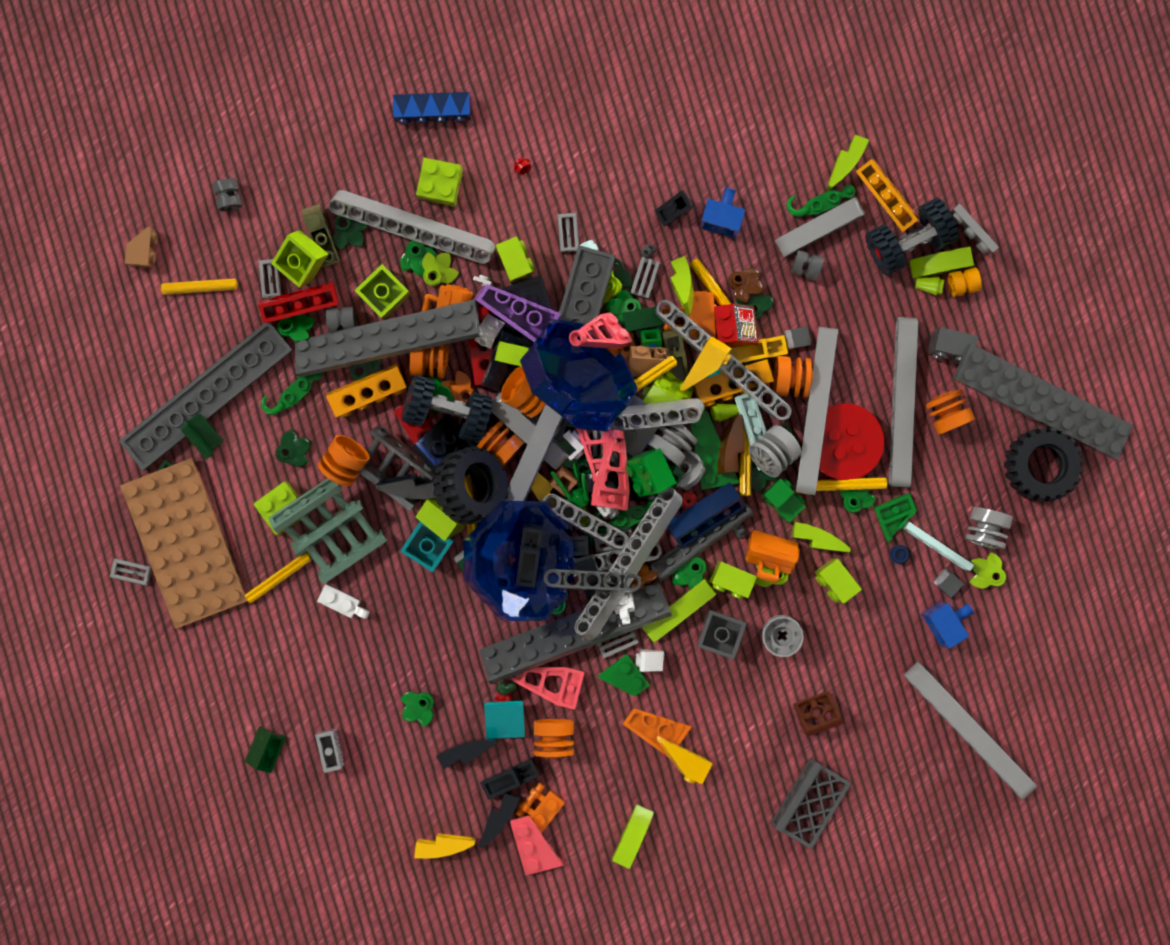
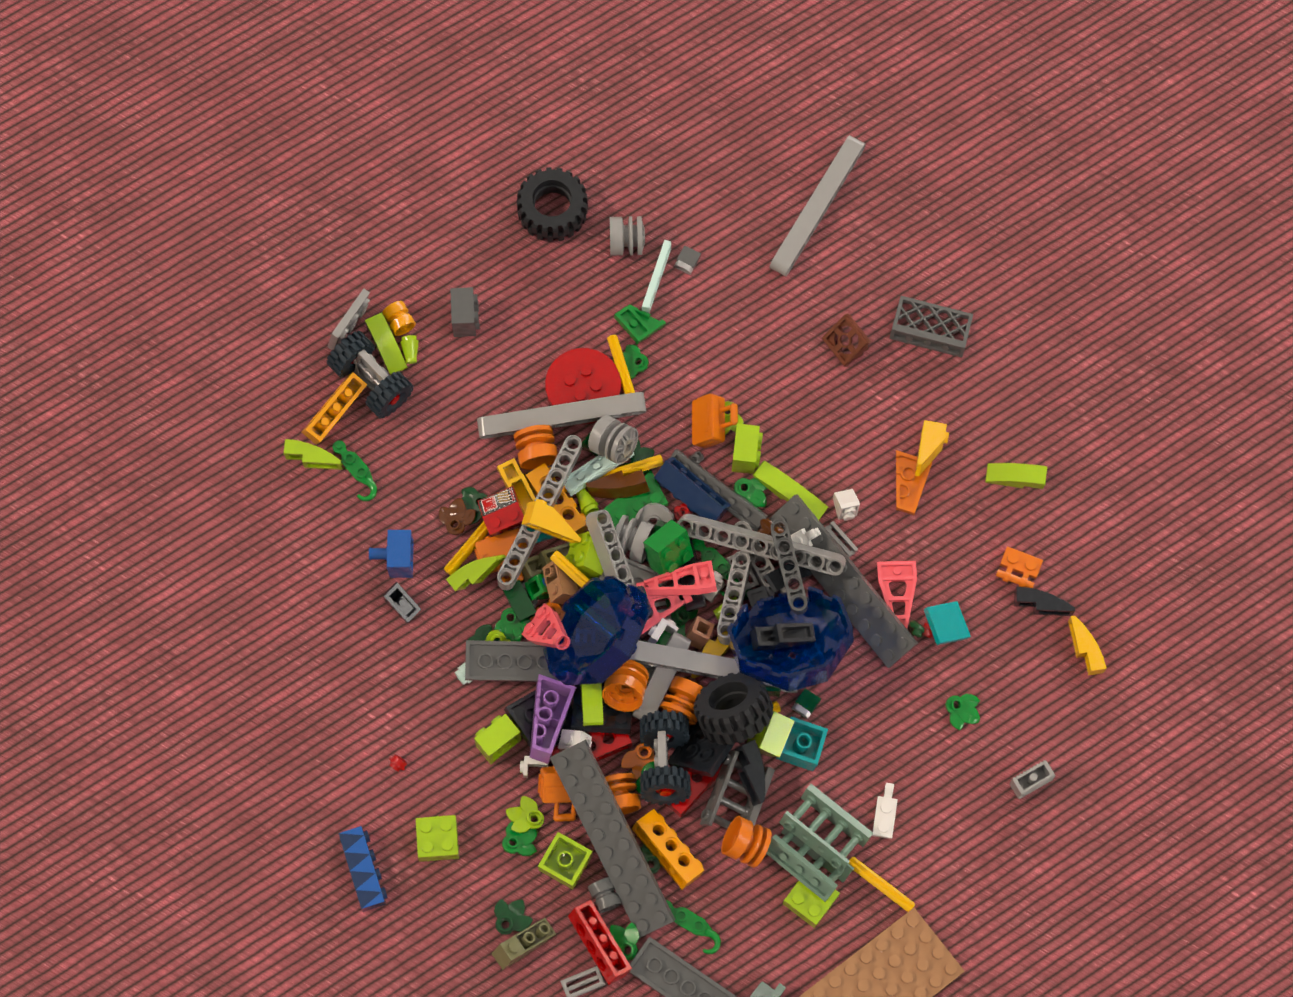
camera: 110 degrees left, 15 degrees down
(265, 750) = (1053, 846): dark green panel -> none
(295, 446) = (746, 905): dark green plate -> none
(299, 258) = (555, 952): lime brick -> none
(412, 226) = (490, 853): light grey beam -> none
(465, 751) = (988, 651): black slope -> none
(512, 777) = (999, 601): black slope -> none
(532, 847) = (1058, 562): coral wing -> none
(553, 738) = (948, 570): orange wheel -> none
(567, 216) = (456, 706): light grey tile -> none
(579, 496) = (711, 611): green plant -> none
(625, 676) = (868, 525): green wing -> none
(648, 251) = (449, 618): dark grey rock -> none
(649, 262) = (460, 613): light grey tile -> none
(721, 634) = (800, 446): dark grey brick -> none
(782, 647) = (780, 380): light grey wheel -> none
(783, 501) = (655, 425): green brick -> none
(797, 338) = (495, 455): dark grey piece -> none
(813, 268) = (423, 464): dark grey wheel -> none
(818, 537) = (682, 385): lime slope -> none
(820, 227) = (382, 463): light grey beam -> none
(837, 581) = (717, 355): lime brick -> none
(899, 554) = (674, 309): dark blue plate -> none
(903, 402) = (528, 343): light grey beam -> none
(946, 623) = (726, 249): blue brick -> none
(950, 411) = (529, 296): orange wheel -> none
(984, 571) = (666, 230): lime plate -> none
(1042, 401) = (494, 219): dark grey plate -> none

